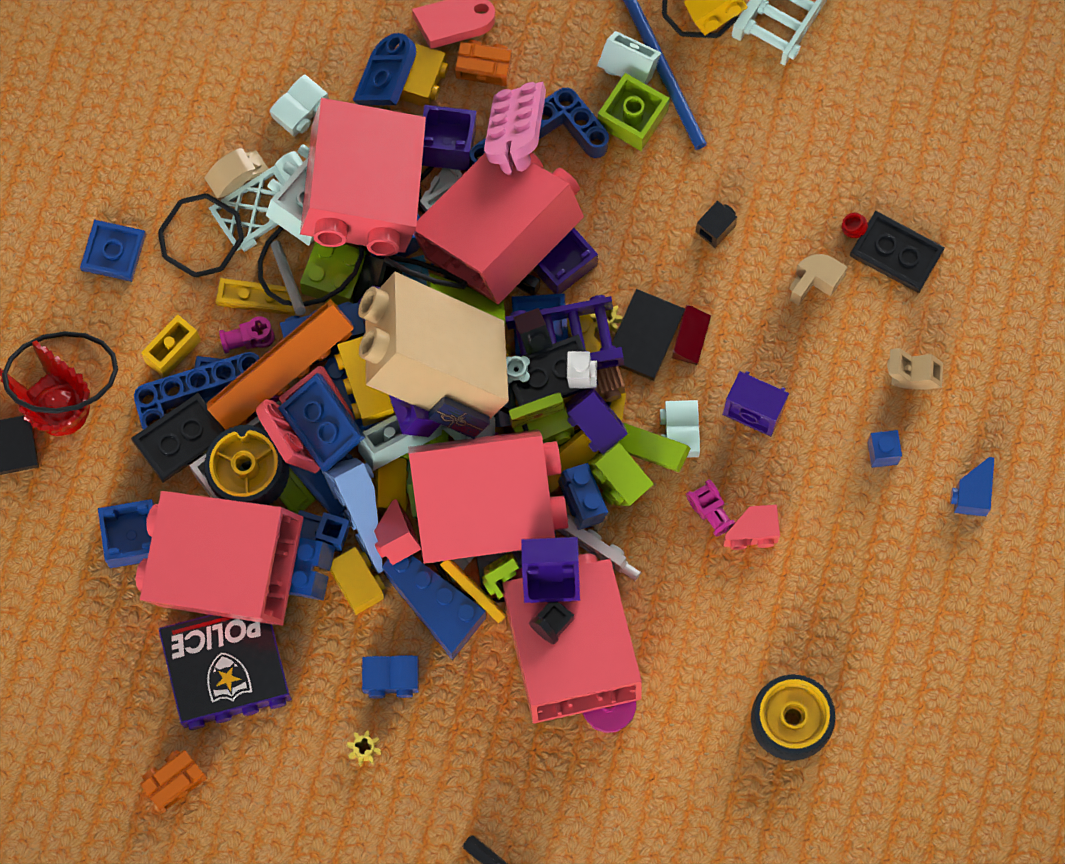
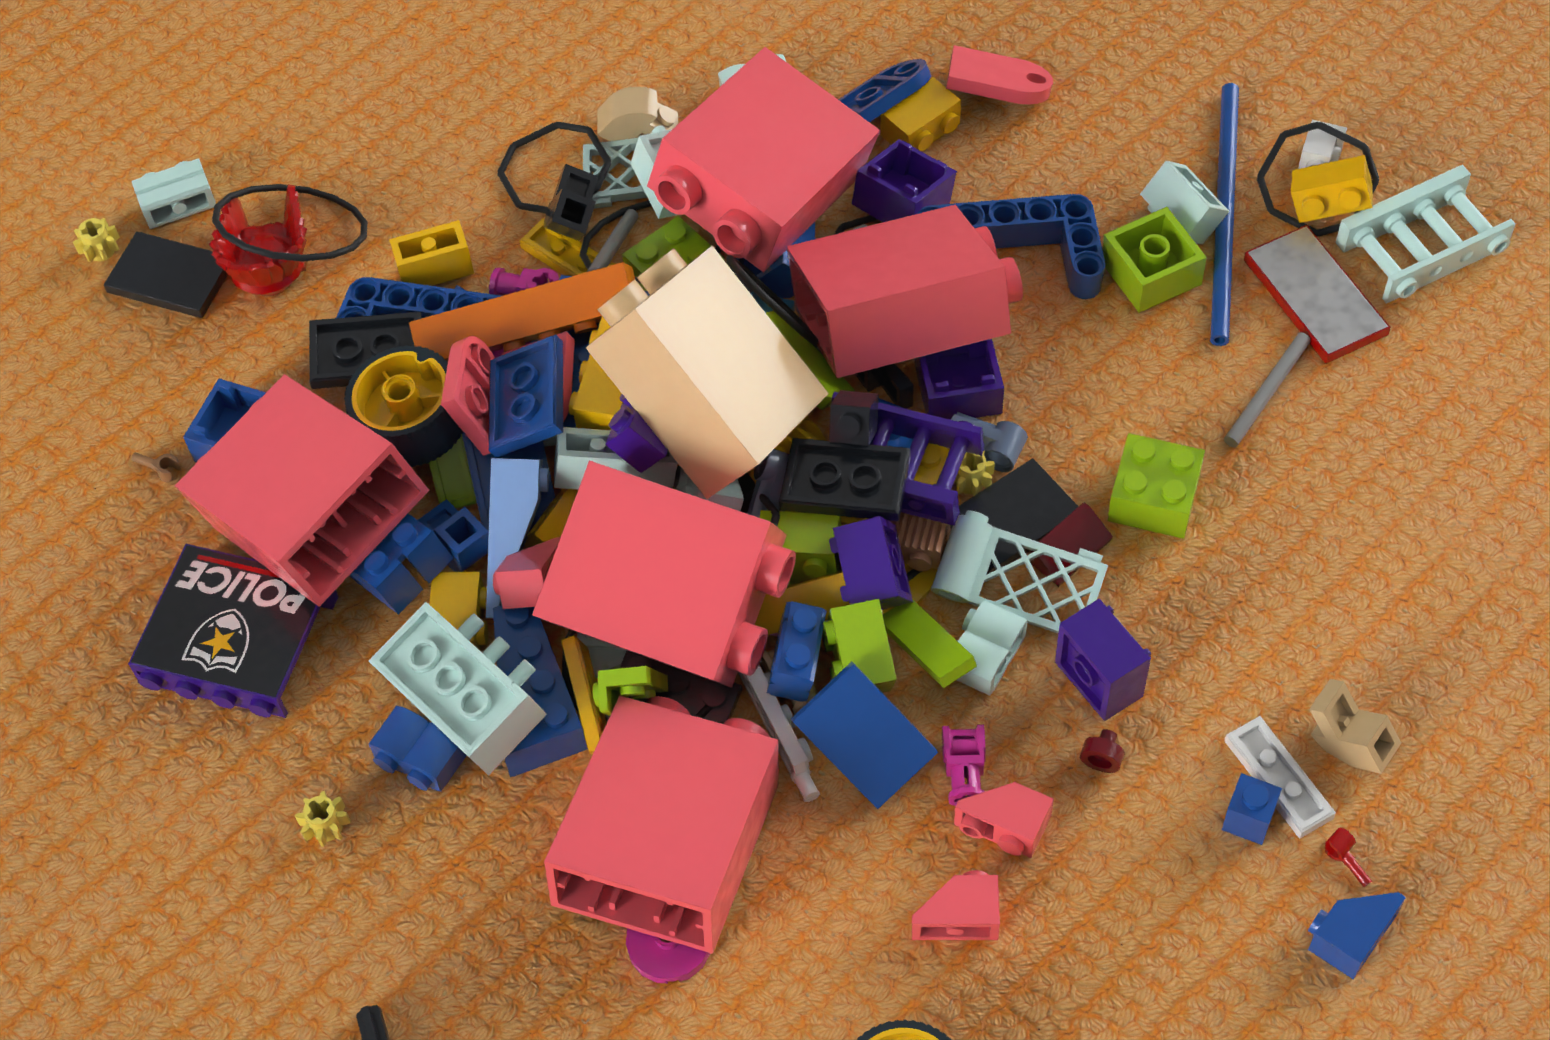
camera: 35 degrees right, 15 degrees down
(89, 584) = (159, 464): none -> medium nougat hand
(113, 250) = (448, 140): blue tile -> none
(172, 780) = (74, 730): orange brick -> none
(237, 265) = (572, 203): none -> black brick
(402, 627) = (460, 685): none -> light aqua piece
(459, 417) = (686, 457): dark blue tile -> none
(483, 63) = (1002, 136): orange brick -> none
(515, 126) = (960, 202): bright pink plate -> none
(520, 362) = (799, 439): light aqua plate -> none
(536, 410) = (795, 507): lime tile -> none
(550, 569) = (680, 699): dark purple container -> none
(552, 621) = (645, 771): black tile -> none
(581, 370) = (880, 482): white brick -> none
(610, 285) = (1001, 441): none -> sand blue piece
(640, 373) = (972, 549): none -> light aqua piece
(651, 525) = (864, 735): none -> blue tile
(716, 223) = (1186, 426): black brick -> none
(720, 270) = (1155, 485): none -> lime brick
(740, 81) = (1316, 294): none -> flat silver tile
(747, 166) = (1267, 390): none -> light grey bar
(762, 595) = (961, 910): none -> coral slope
(784, 459) = (1102, 752): none -> dark red tile
(817, 271) = (1288, 548): tan brick -> none
(854, 225) = (1371, 518): red plate -> none
(886, 417) = (1270, 761): none -> white tile
(897, 251) = (1415, 580): black tile -> none
(940, 444) = (1338, 848): none -> red hand

